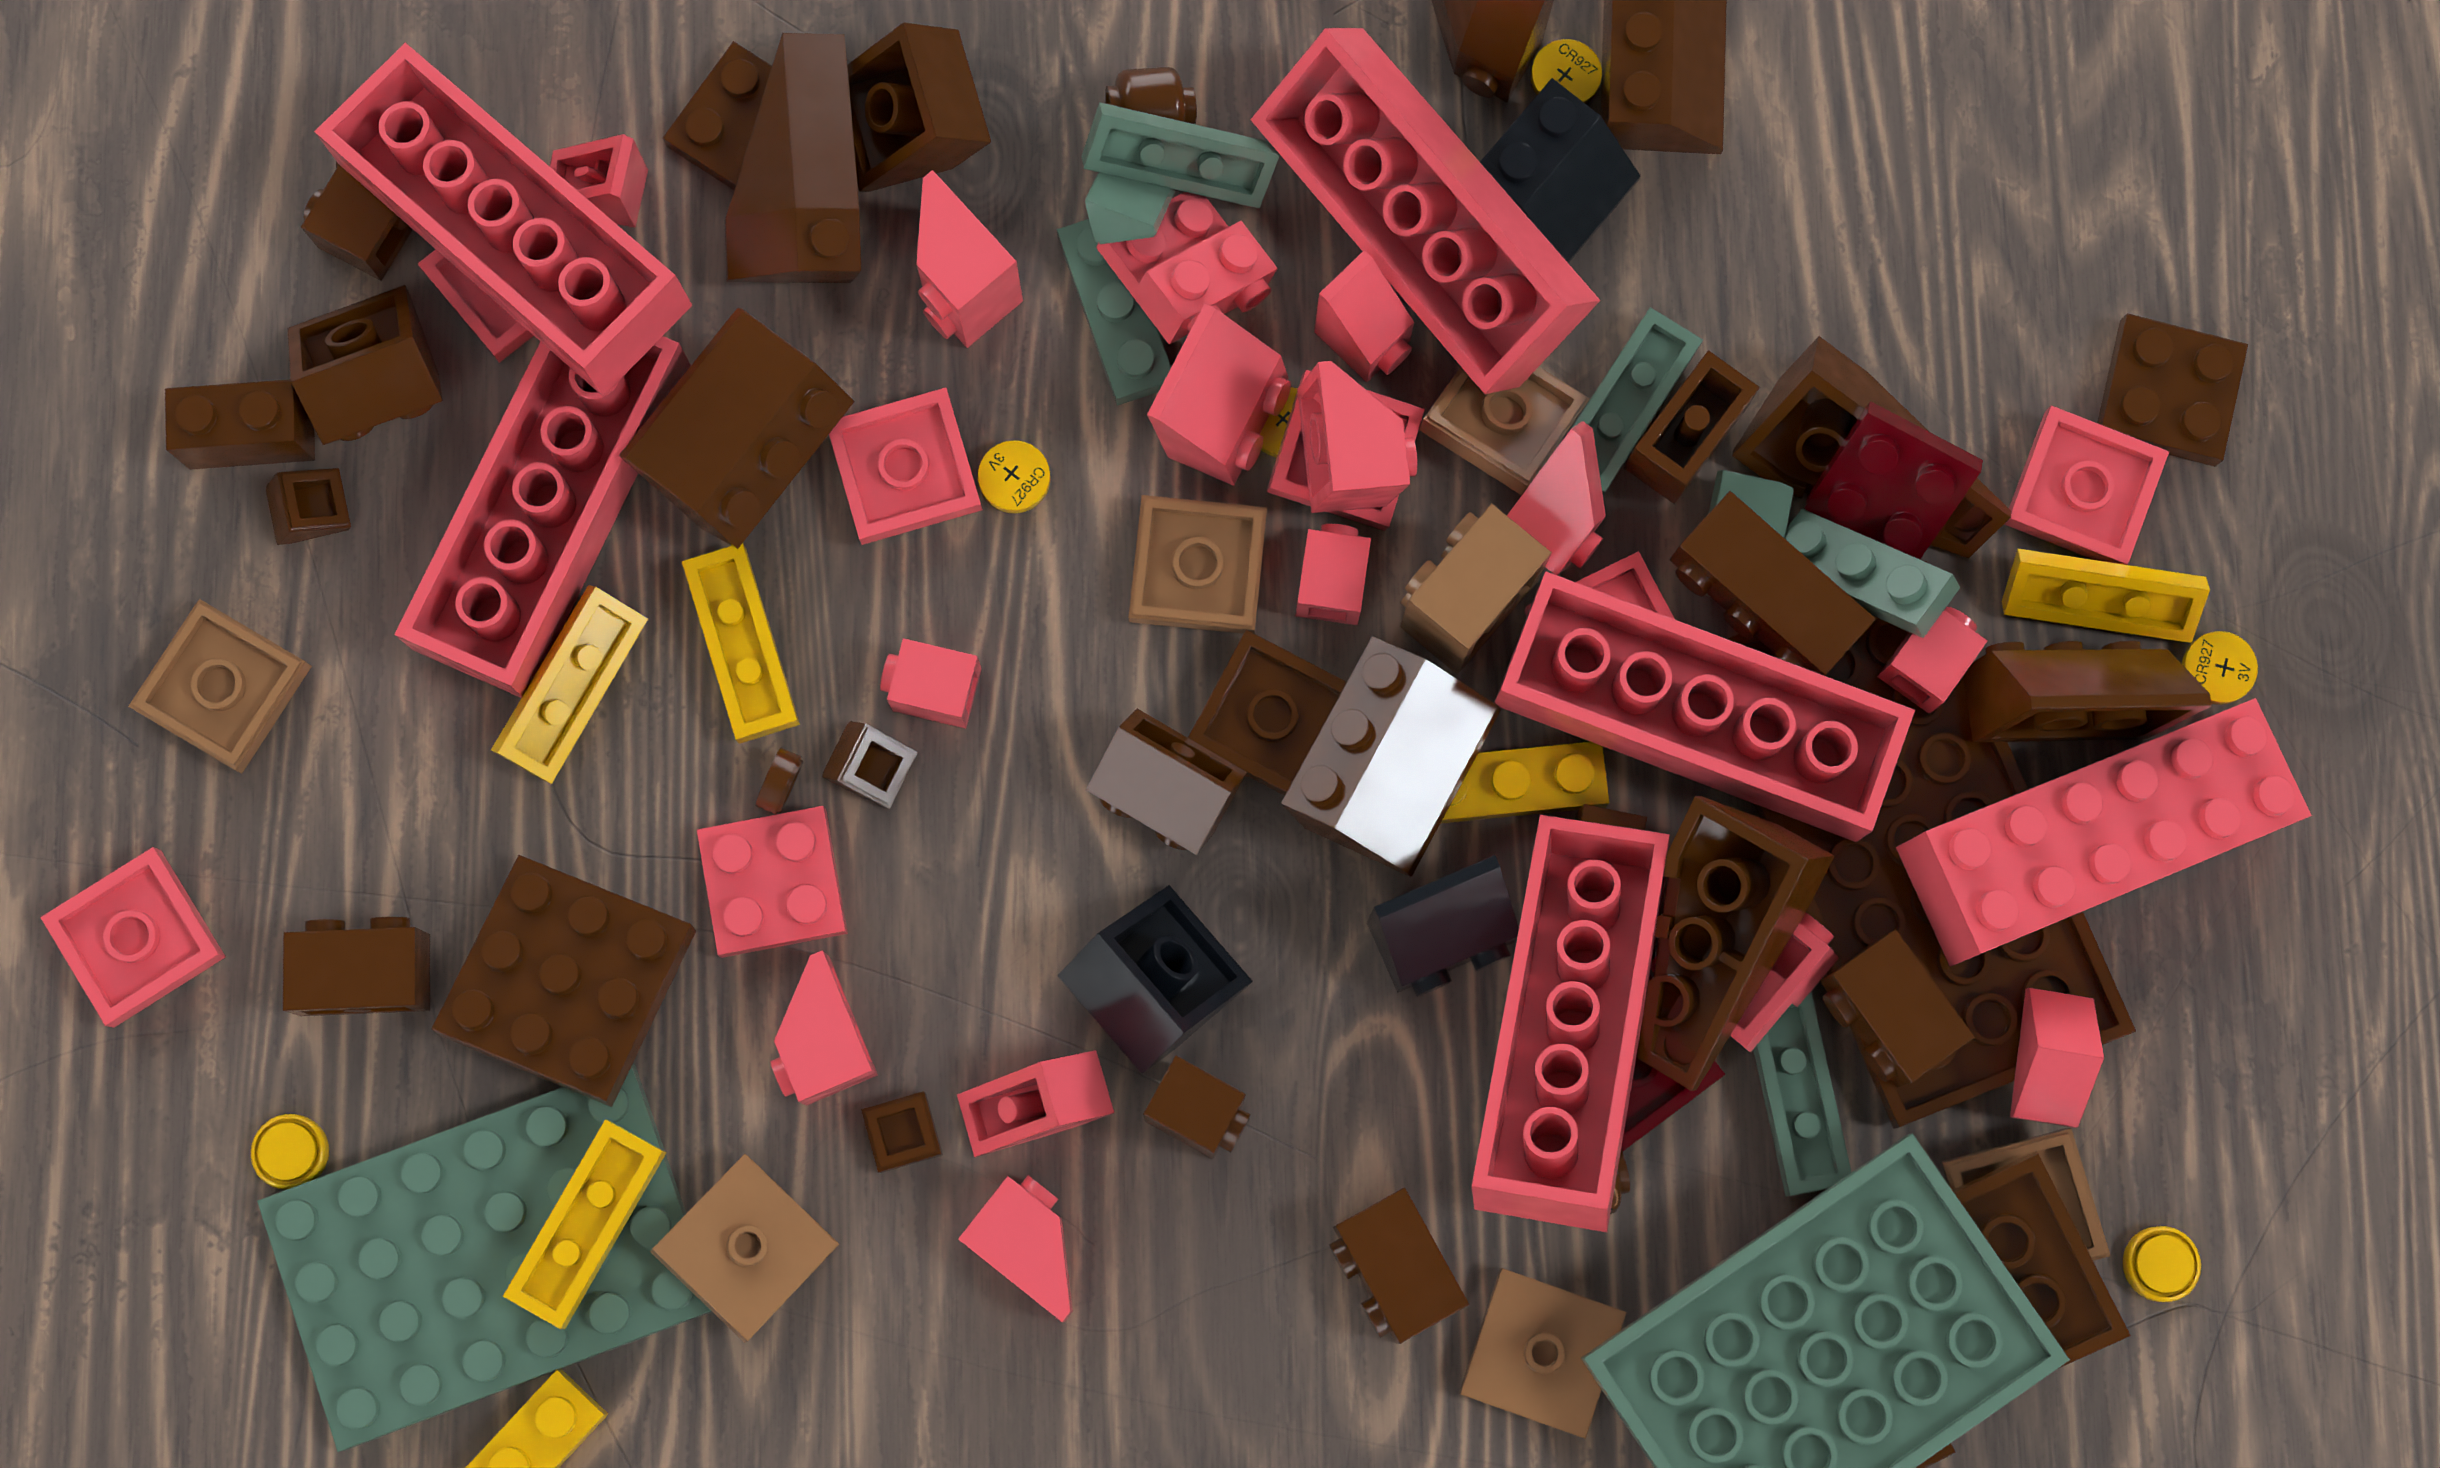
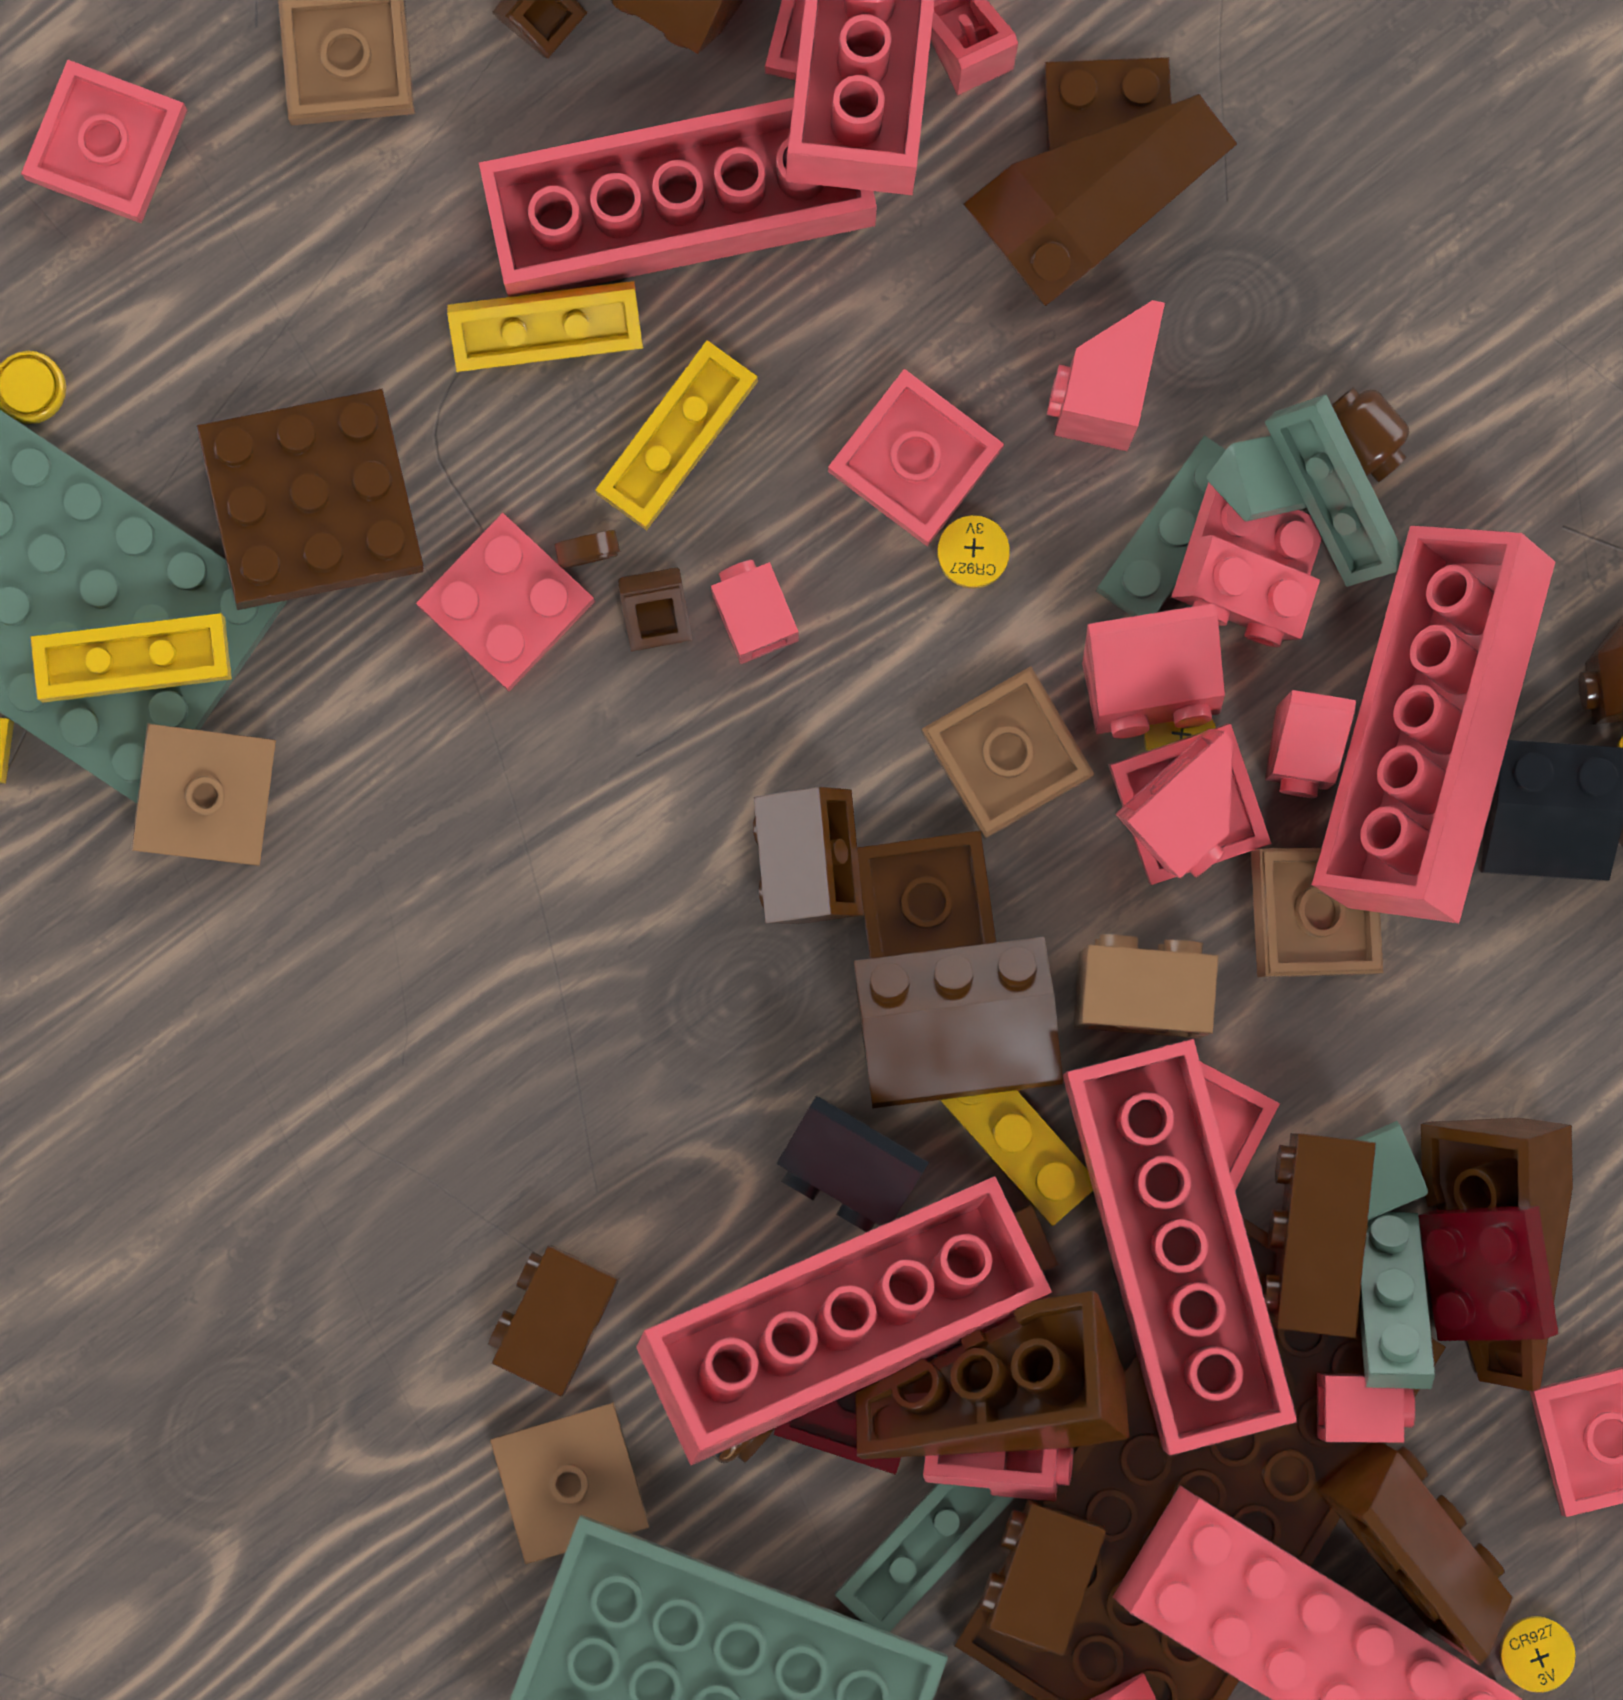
camera: 55 degrees right, 5 degrees up
(356, 969) = (202, 333): reddish brown brick -> none
(737, 428) = (843, 304): reddish brown slope -> none
(820, 1038) = (408, 731): coral slope -> none
(901, 1132) = (382, 850): reddish brown tile -> none
(913, 106) = (1219, 243): reddish brown slope -> none
(1024, 1242) = (362, 1011): coral slope -> none
(1035, 1102) = (478, 939): coral slope -> none
(1154, 978) = (645, 961): black slope -> none
(1197, 1109) = (560, 1070): reddish brown brick -> none
(1333, 574) = (1078, 867): coral brick -> none
(1565, 502) = (1271, 1014): coral slope -> none
(1636, 389) = (1401, 1004): sand green plate -> none
(1691, 427) = (1415, 1073): reddish brown brick -> none
(2105, 595) = (1526, 1516): yellow plate -> none

